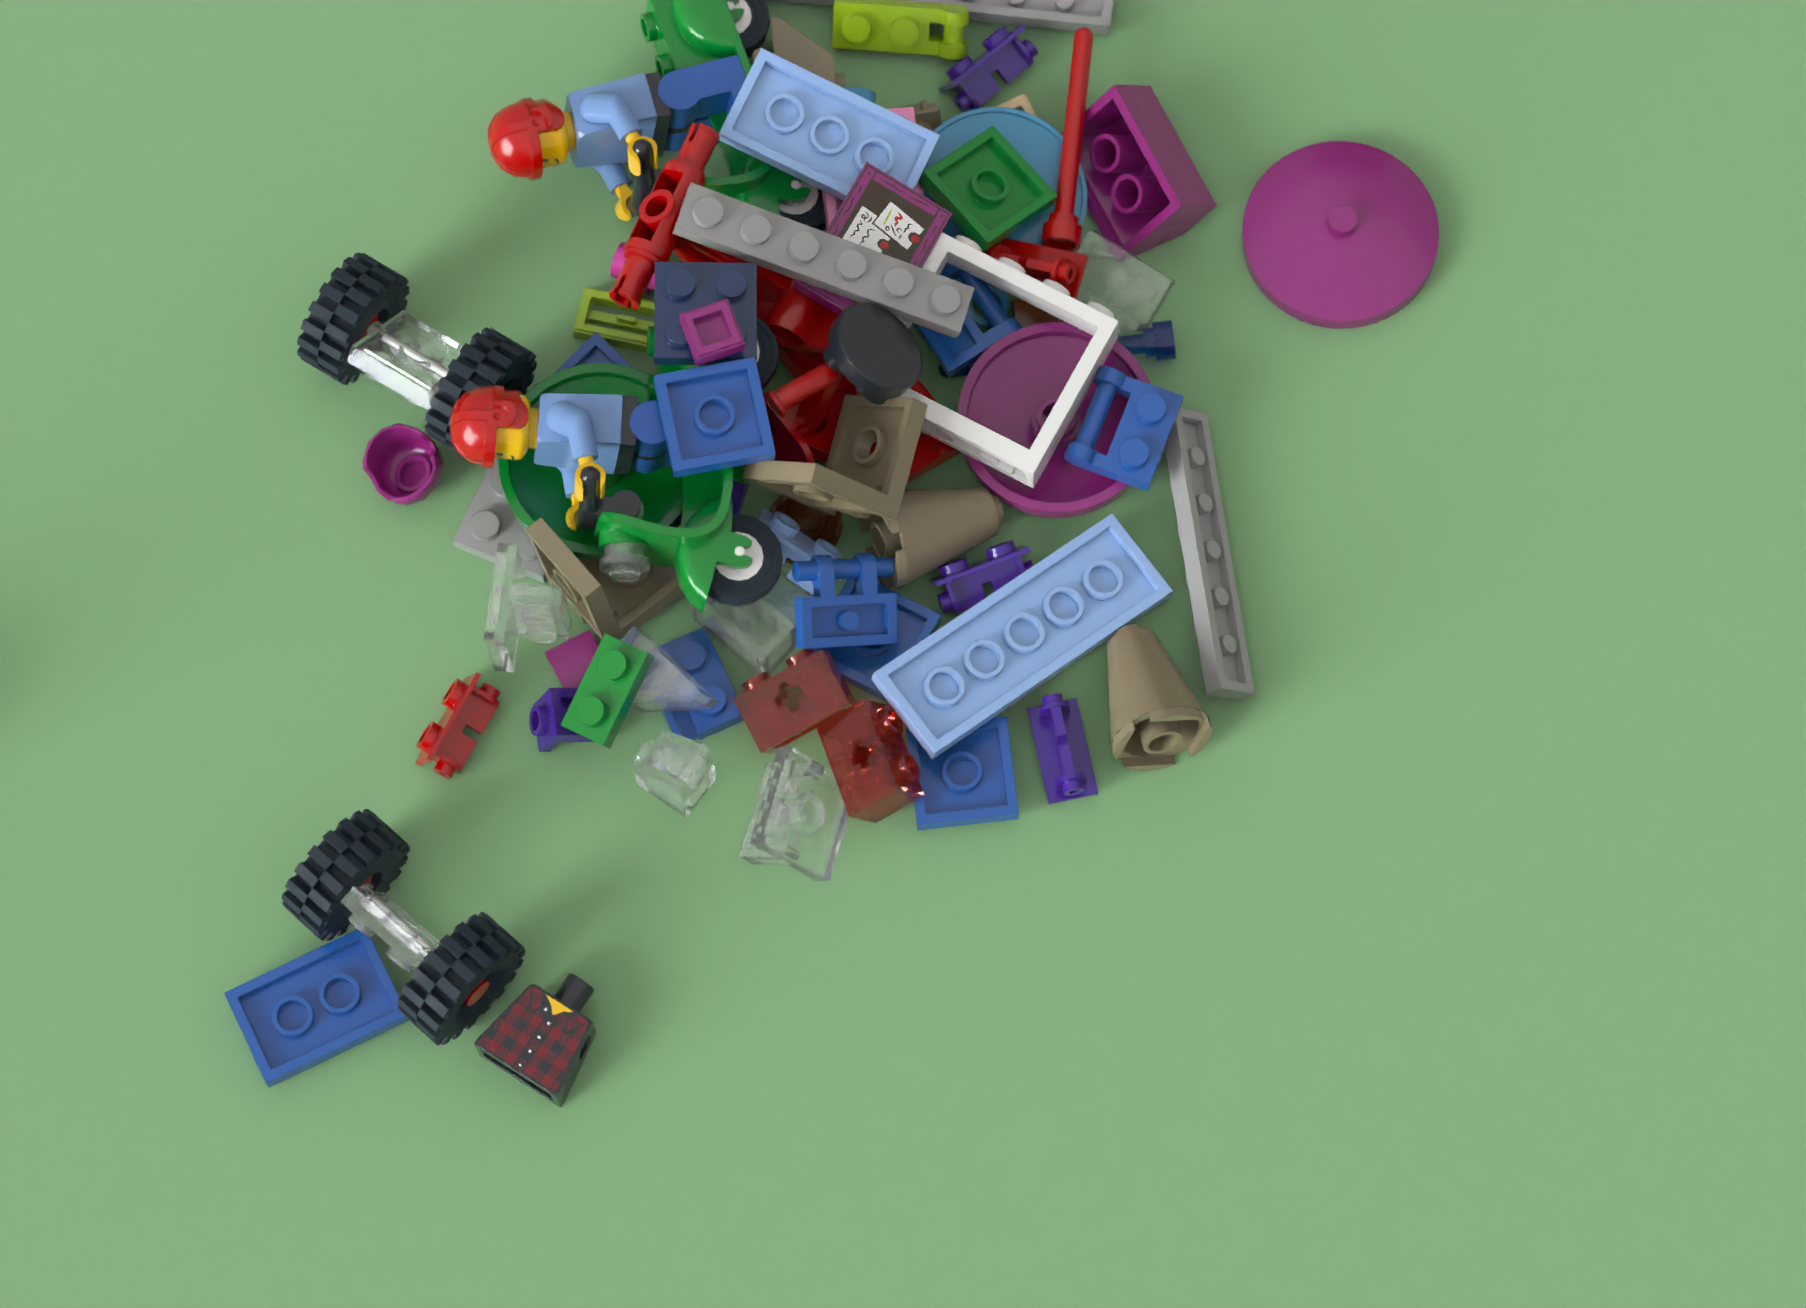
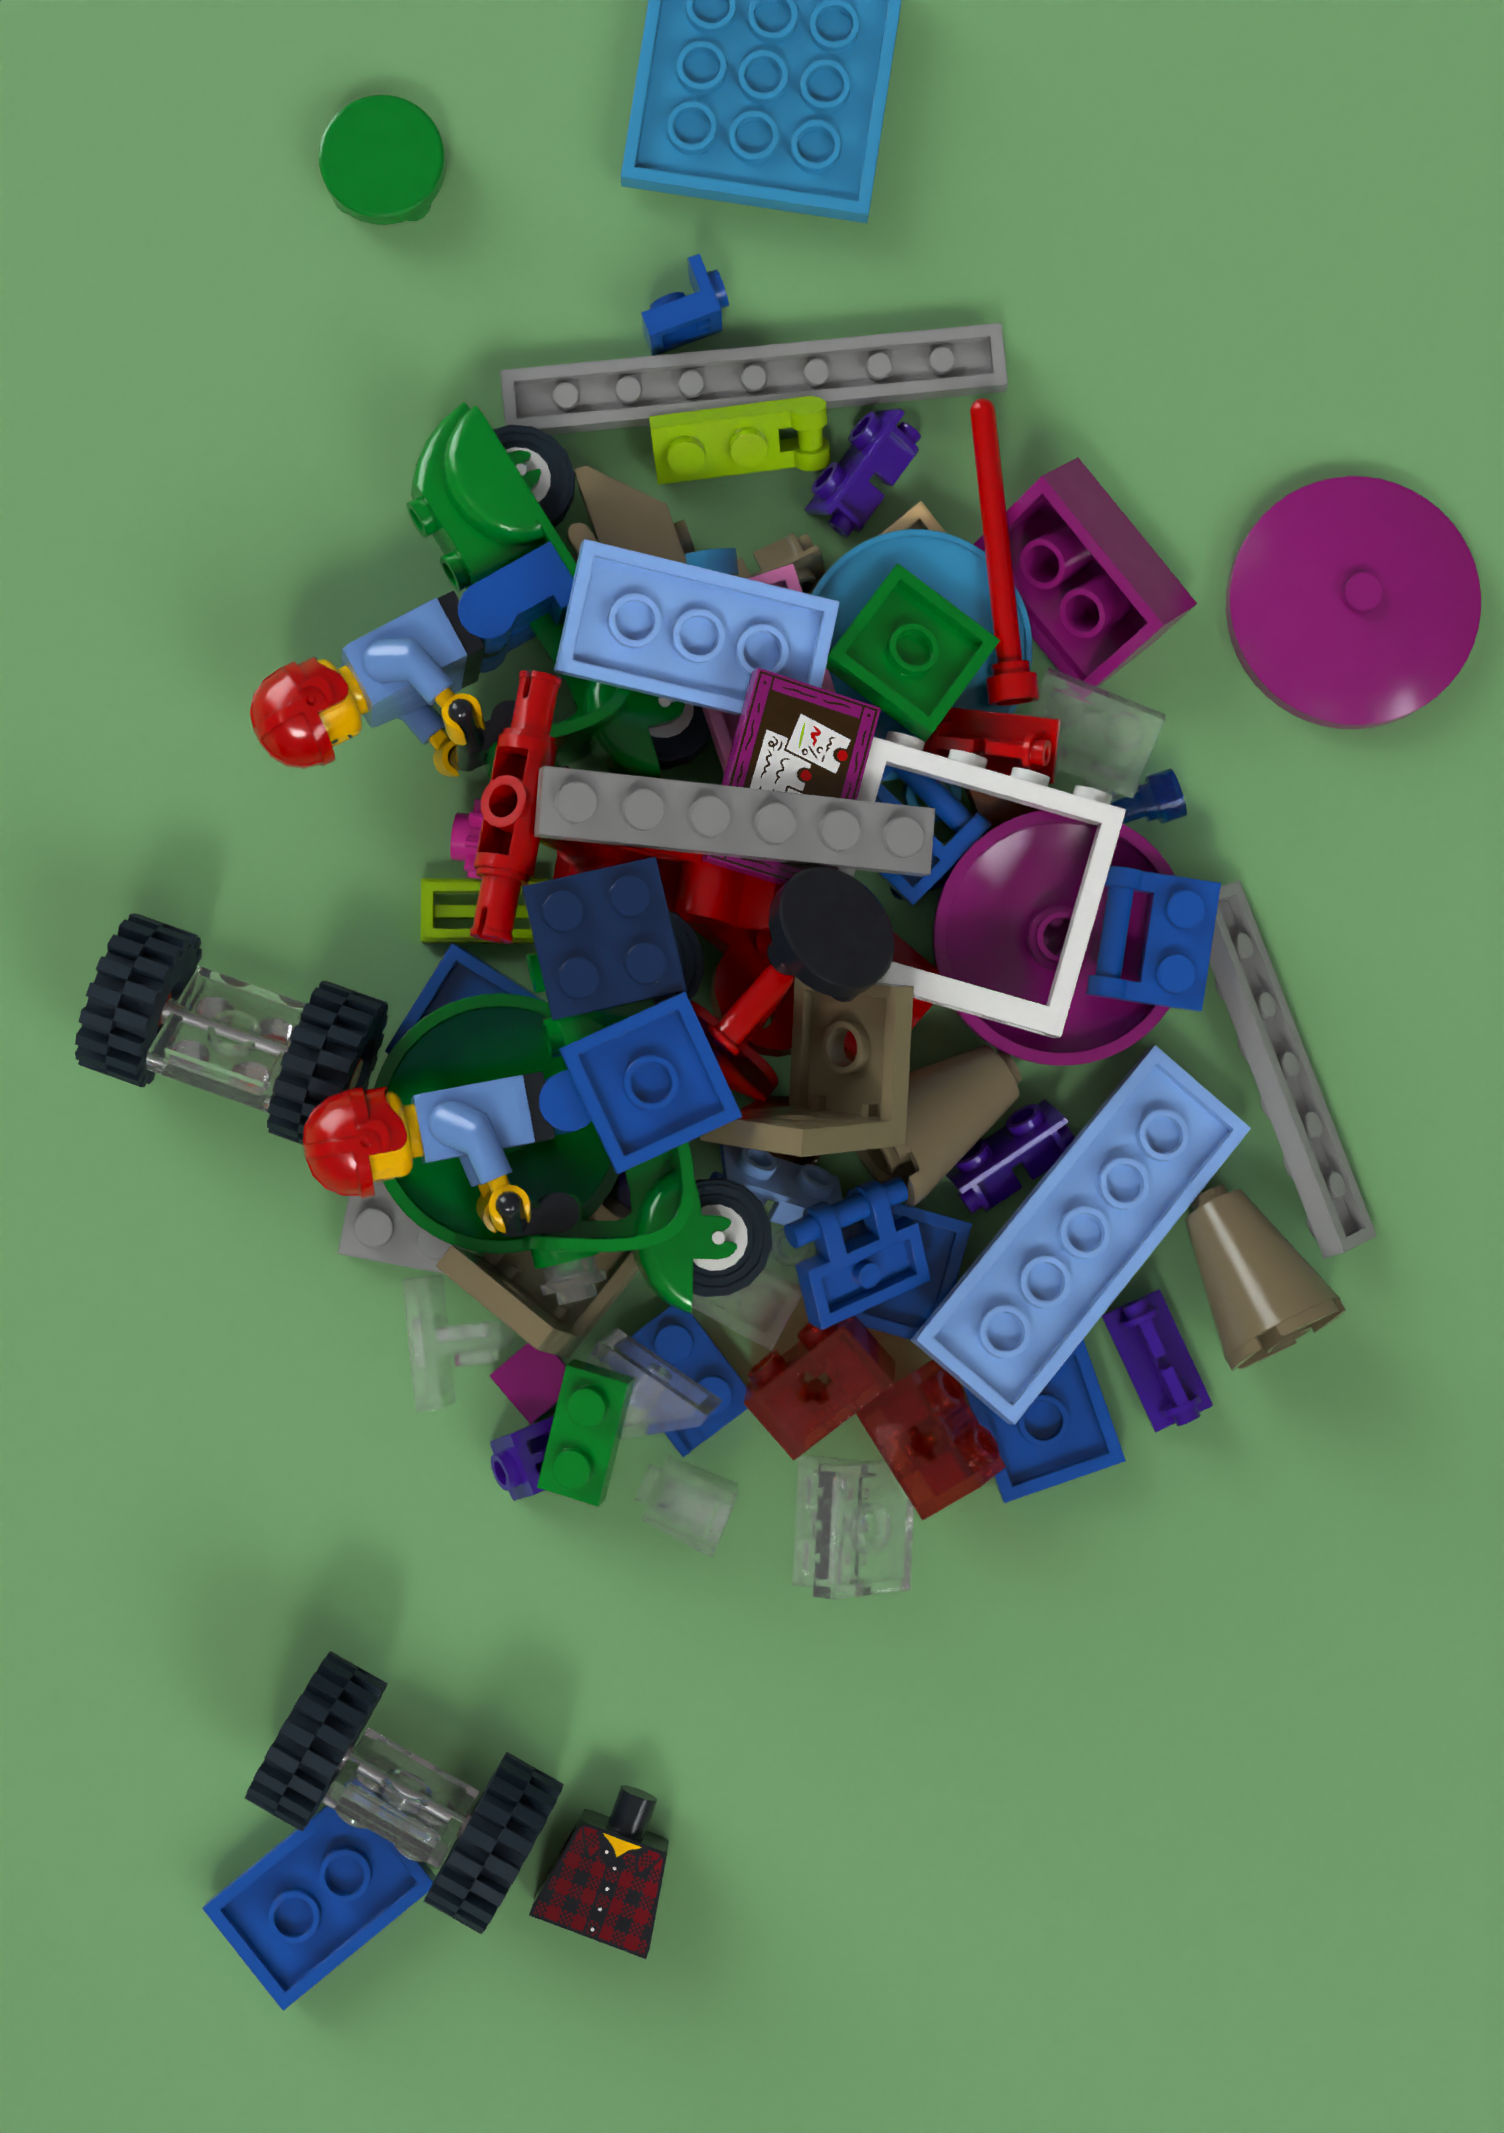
camera: 20 degrees left, 15 degrees up
(403, 464) = (251, 1172): magenta hair -> none
(465, 707) = (393, 1517): red hinge -> none
(712, 332) = (623, 974): magenta tile -> none

